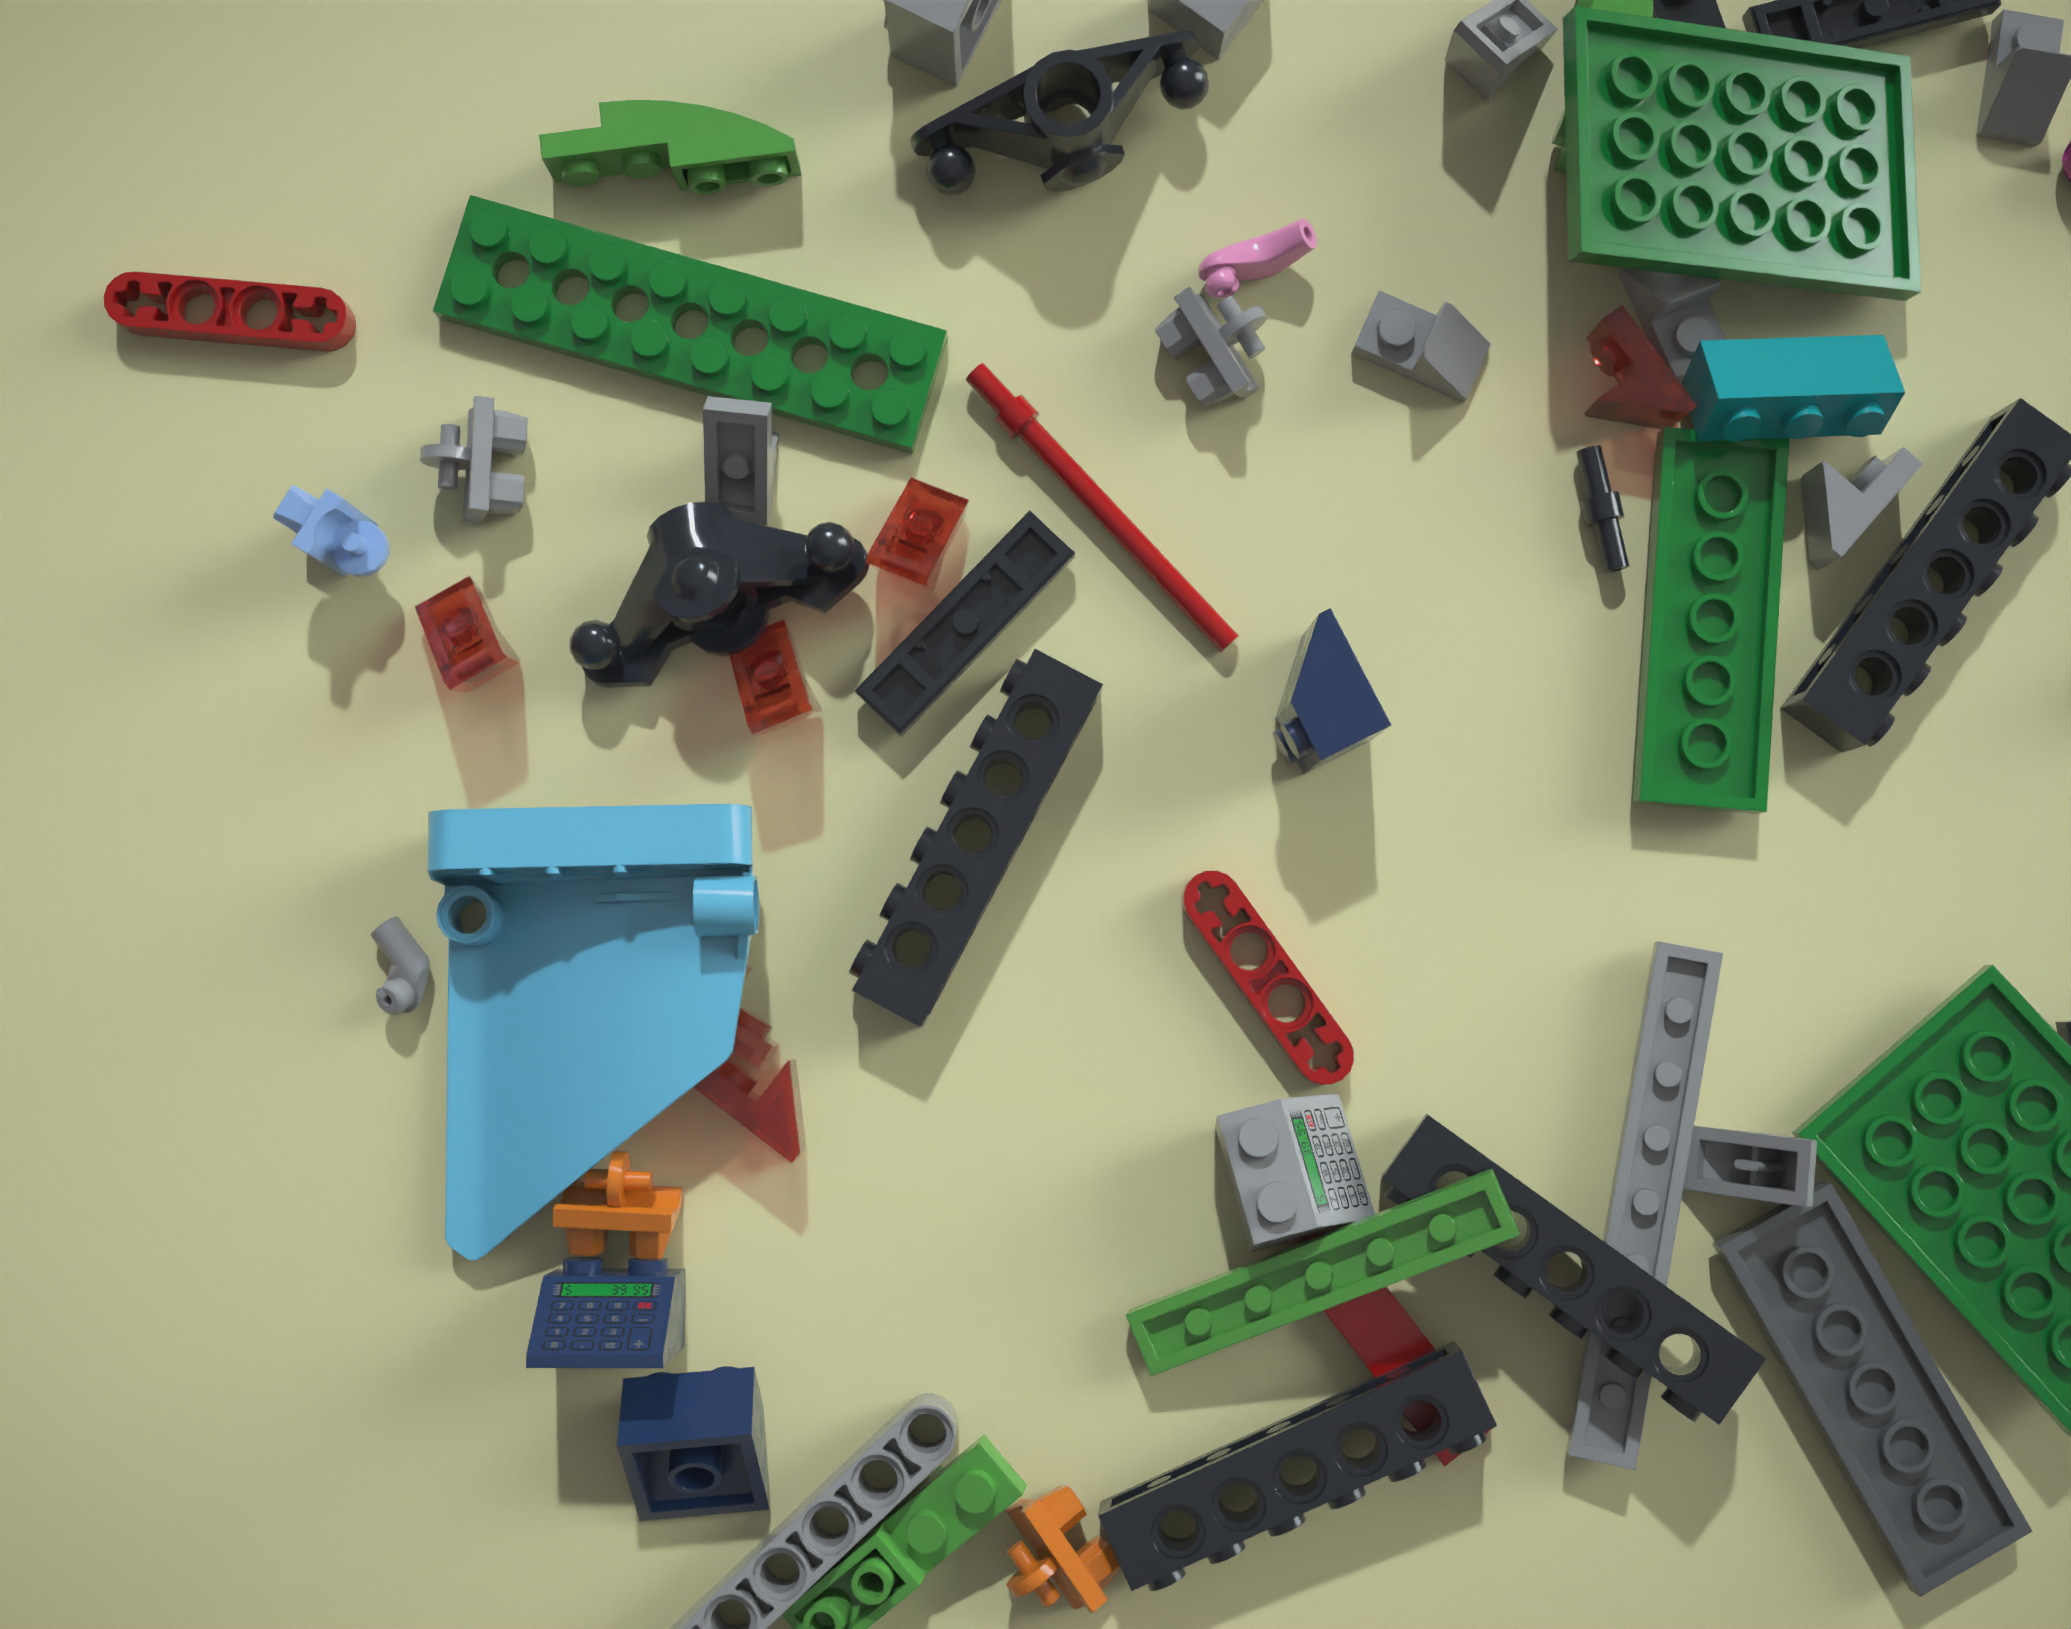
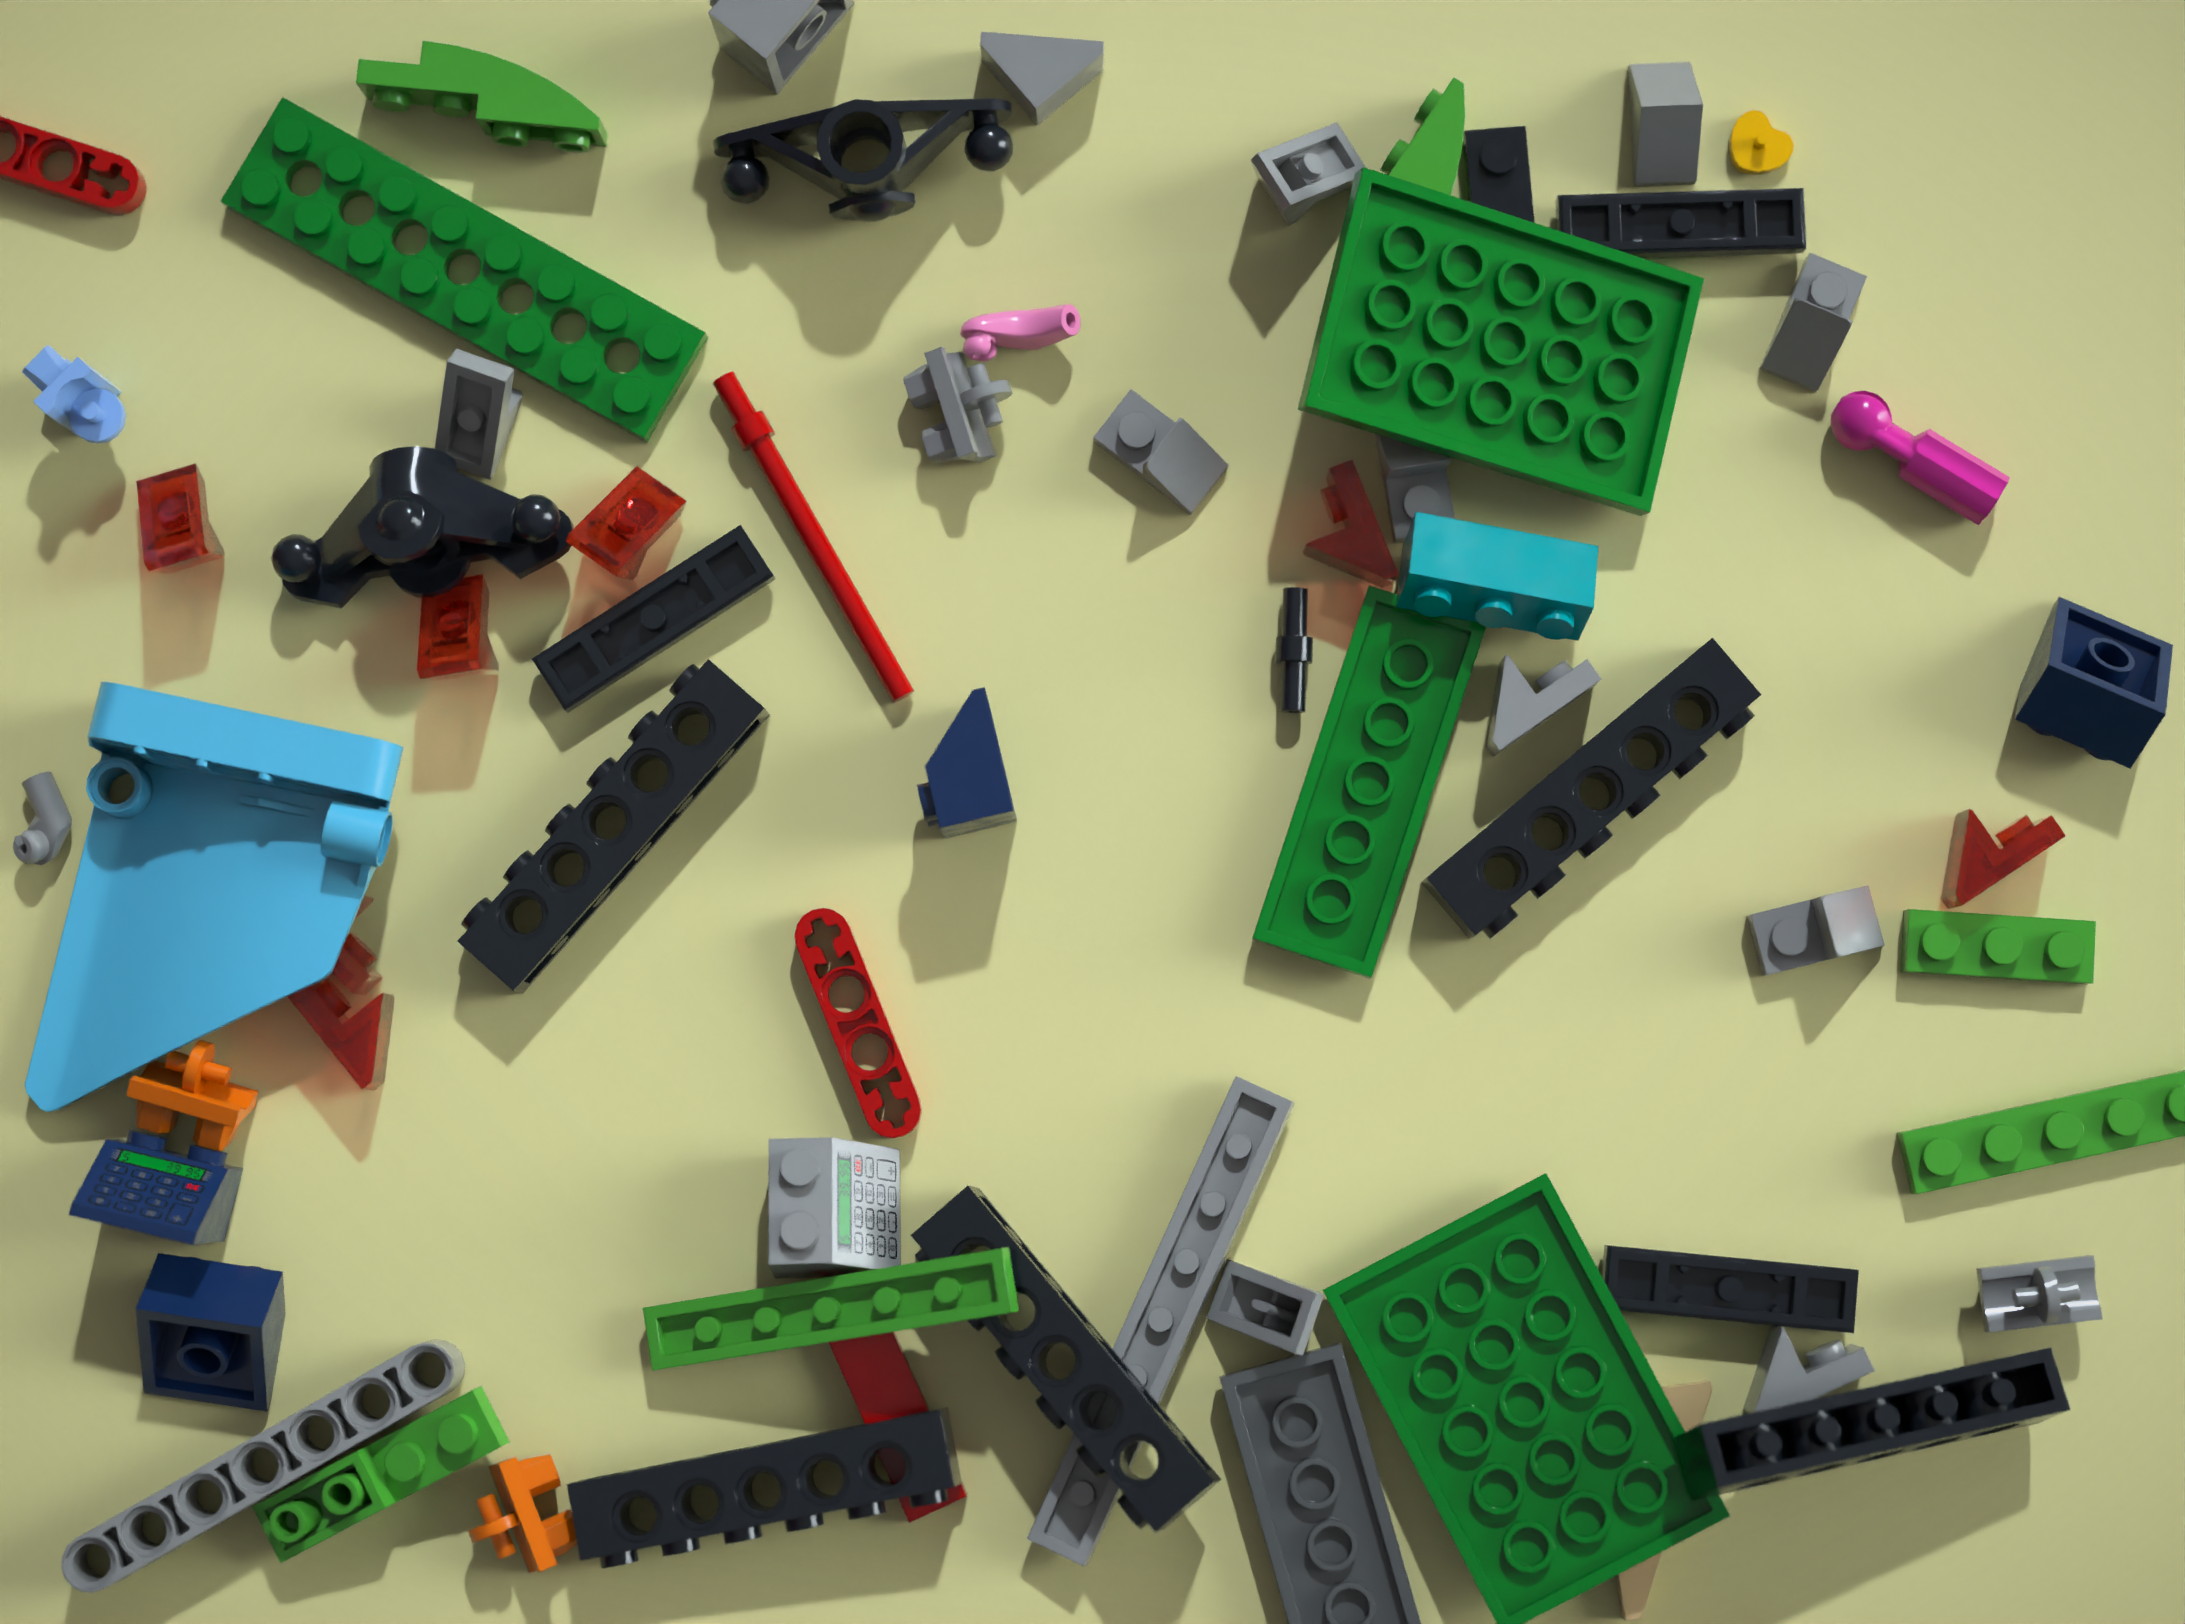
camera: 20 degrees right, 0 degrees up
(486, 433) = (243, 330): light grey hips -> none

